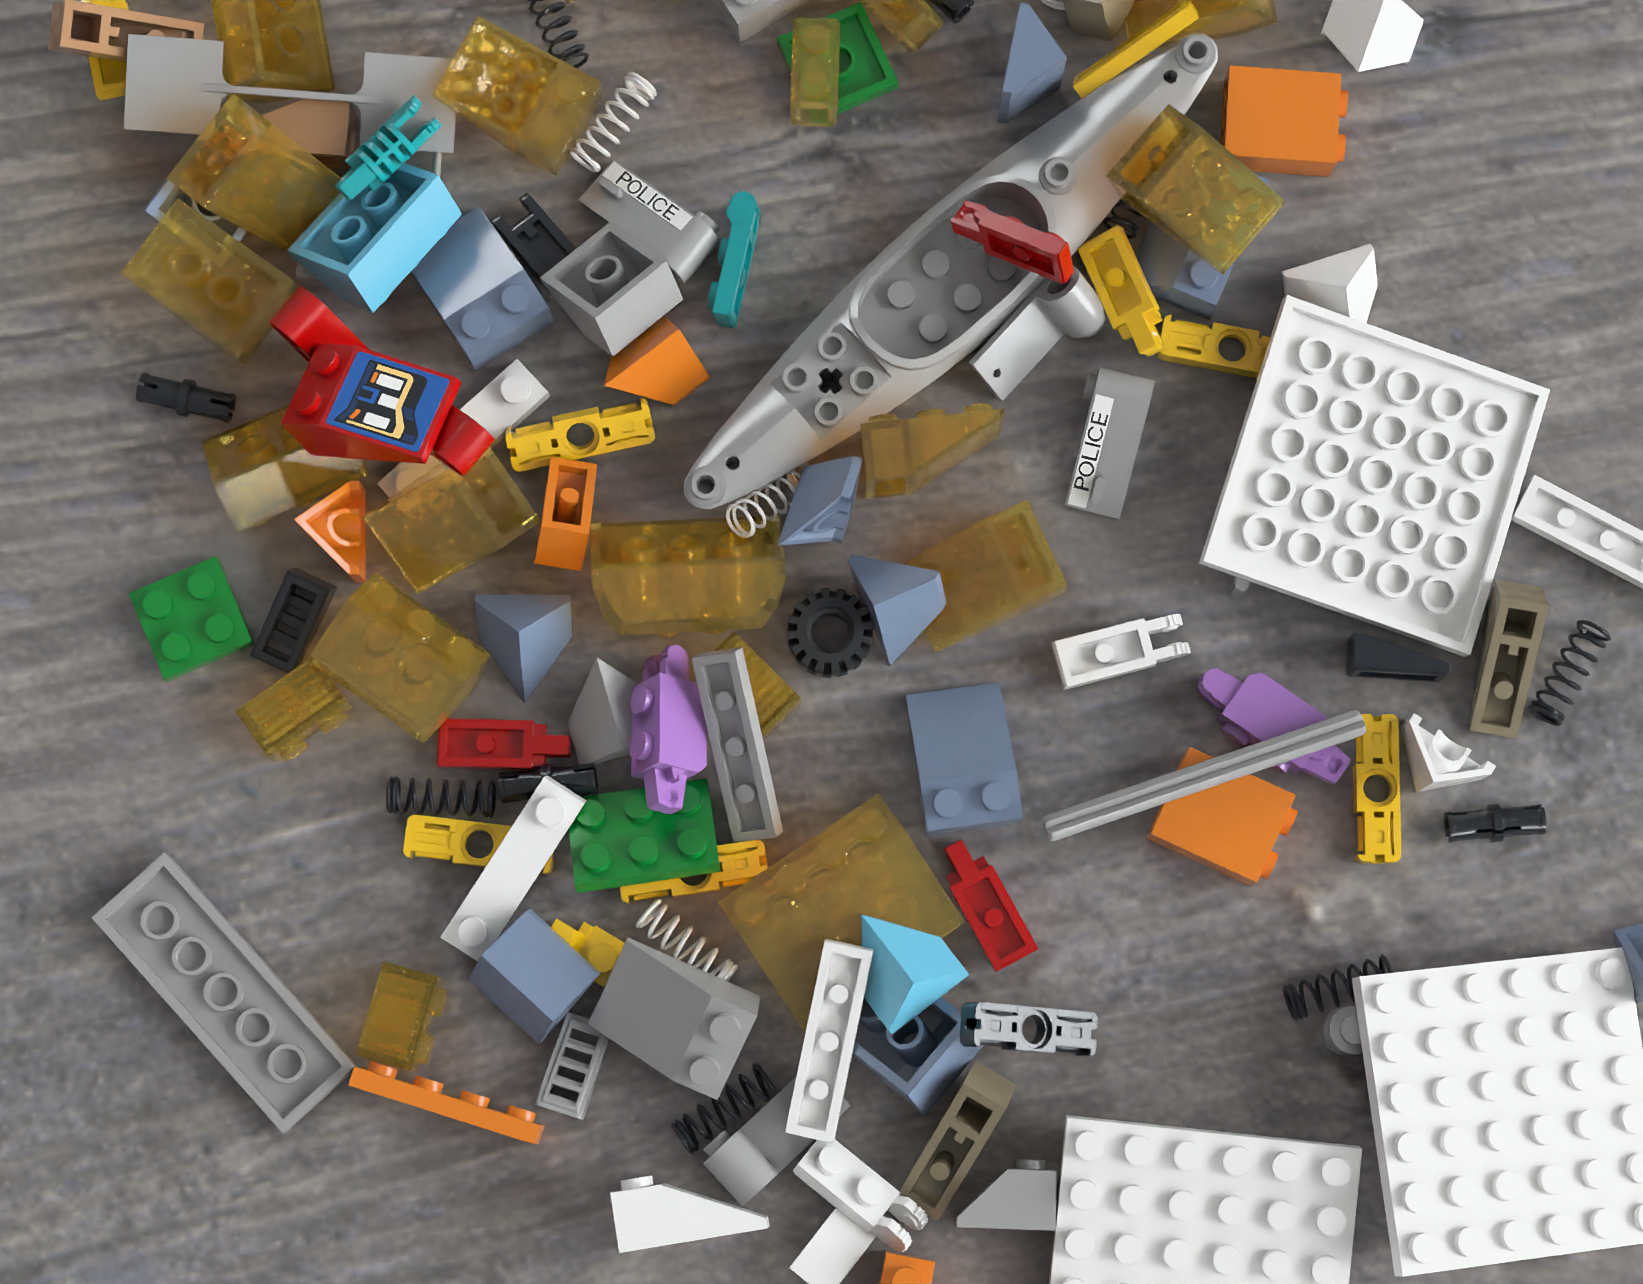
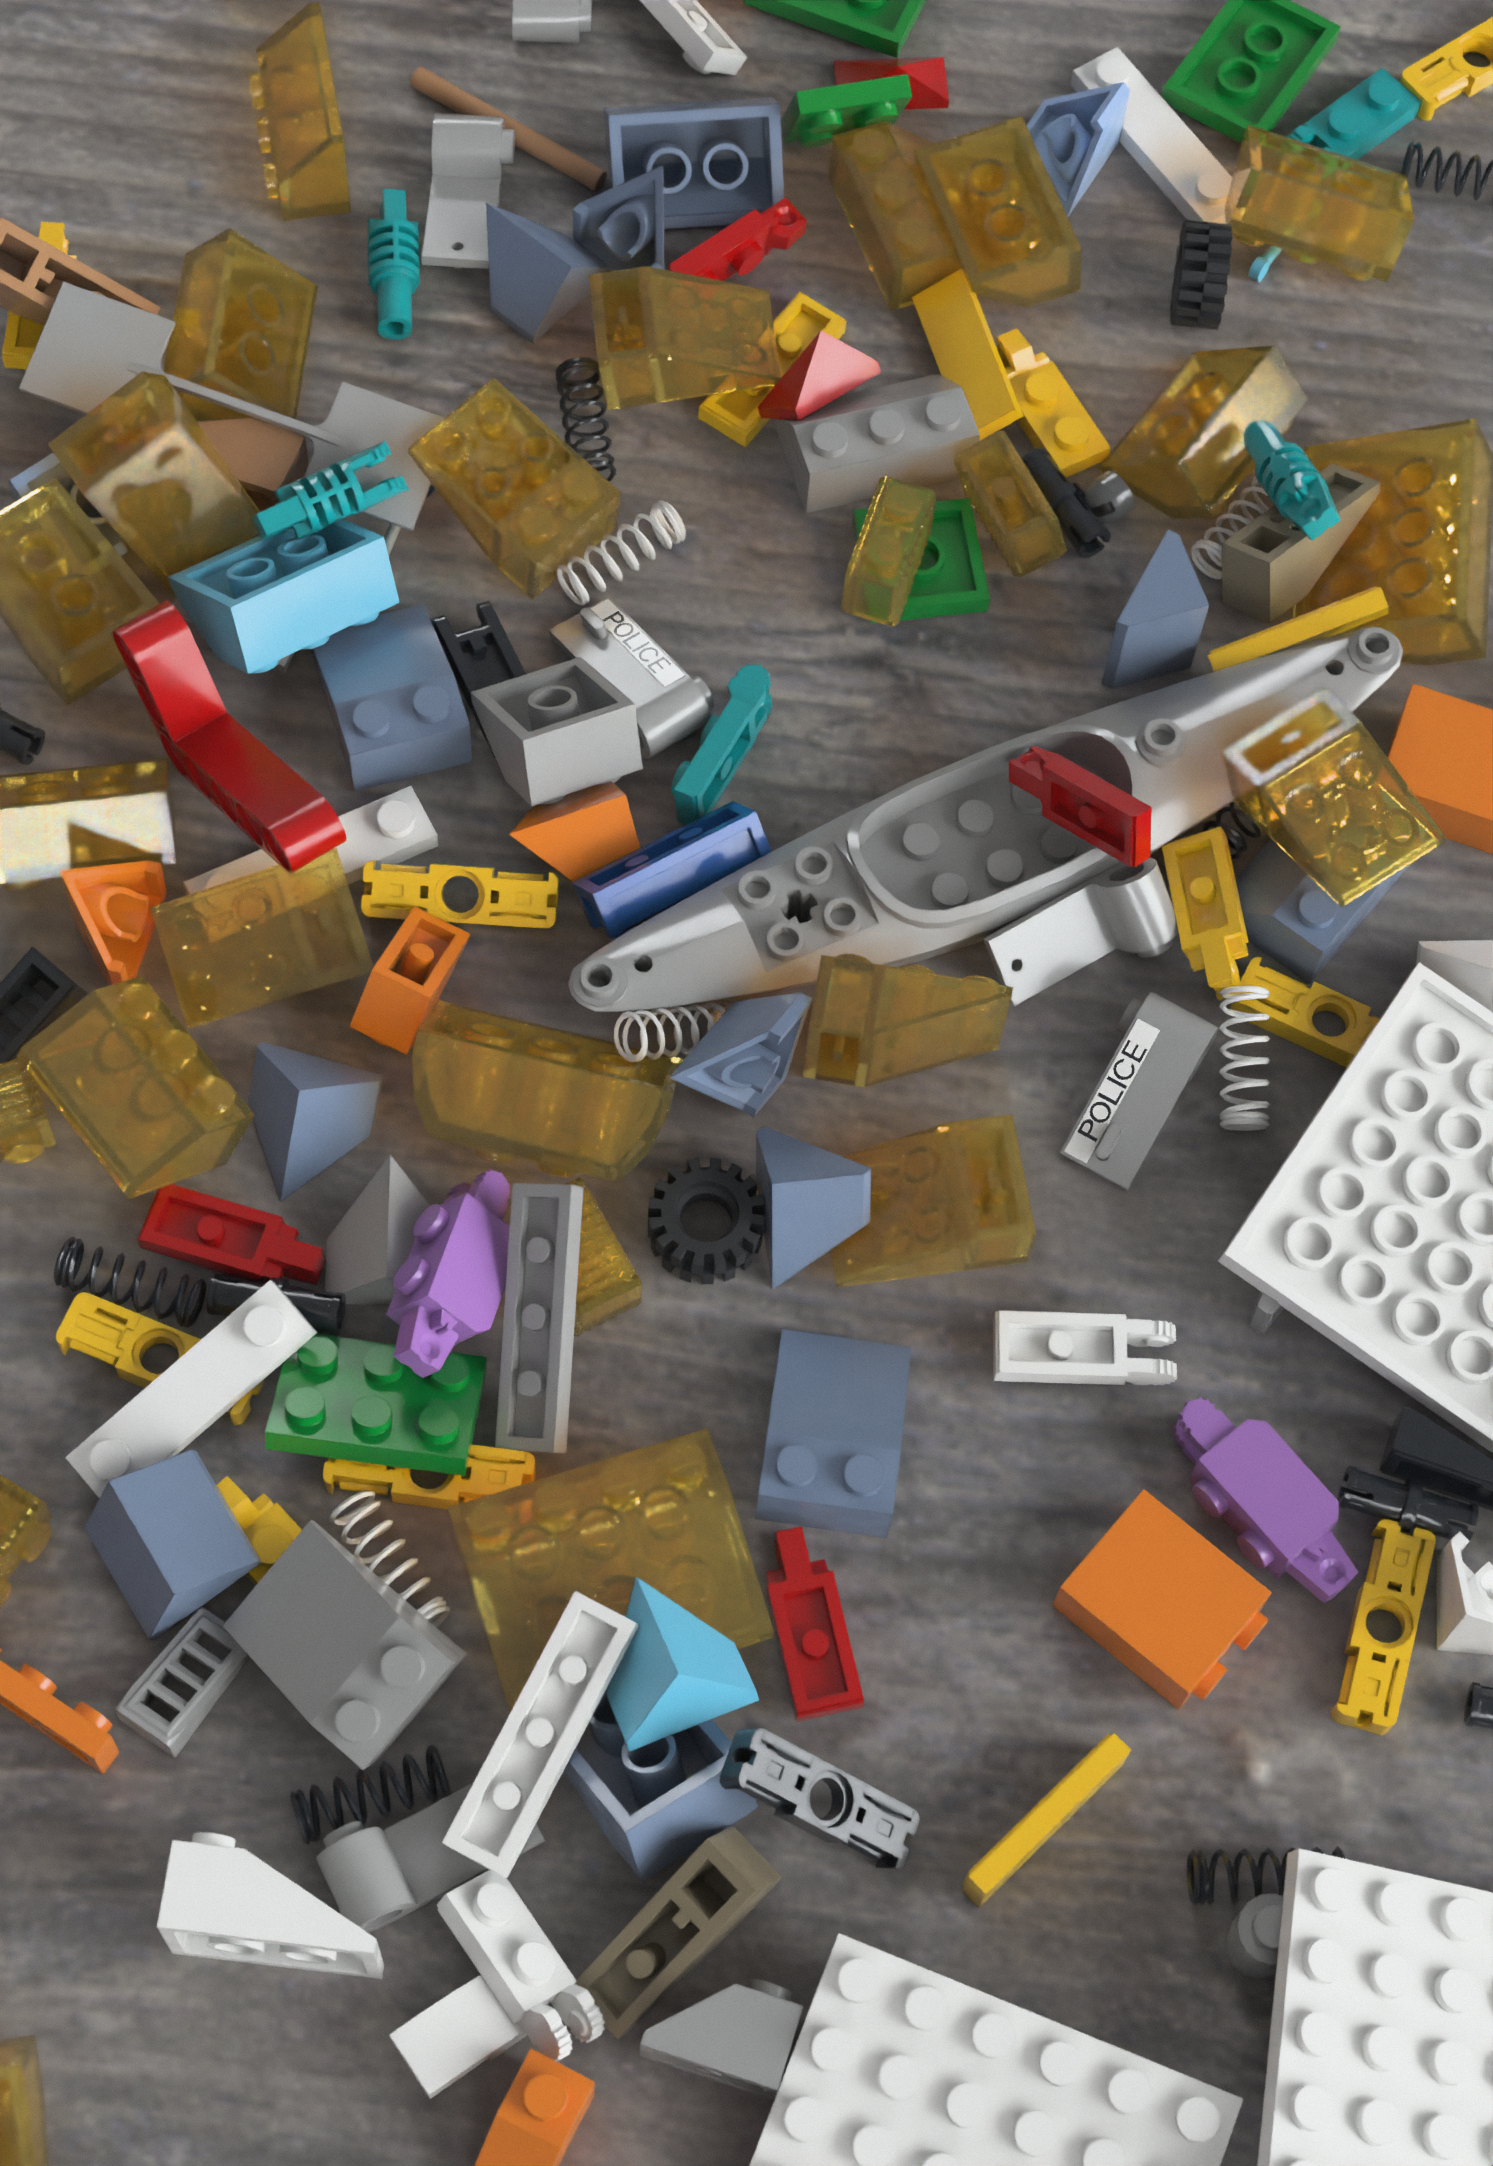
camera: 10 degrees right, 15 degrees down
(368, 406) = (198, 756): slope -> none
(727, 370) = (671, 868): none -> blue container
(1181, 993) = (1045, 1819): none -> yellow tile
(1189, 442) = (1230, 1117): none -> white piece
(1204, 775) = (1152, 1527): light grey axle -> none
(1373, 698) = (1406, 1504): none -> black pin

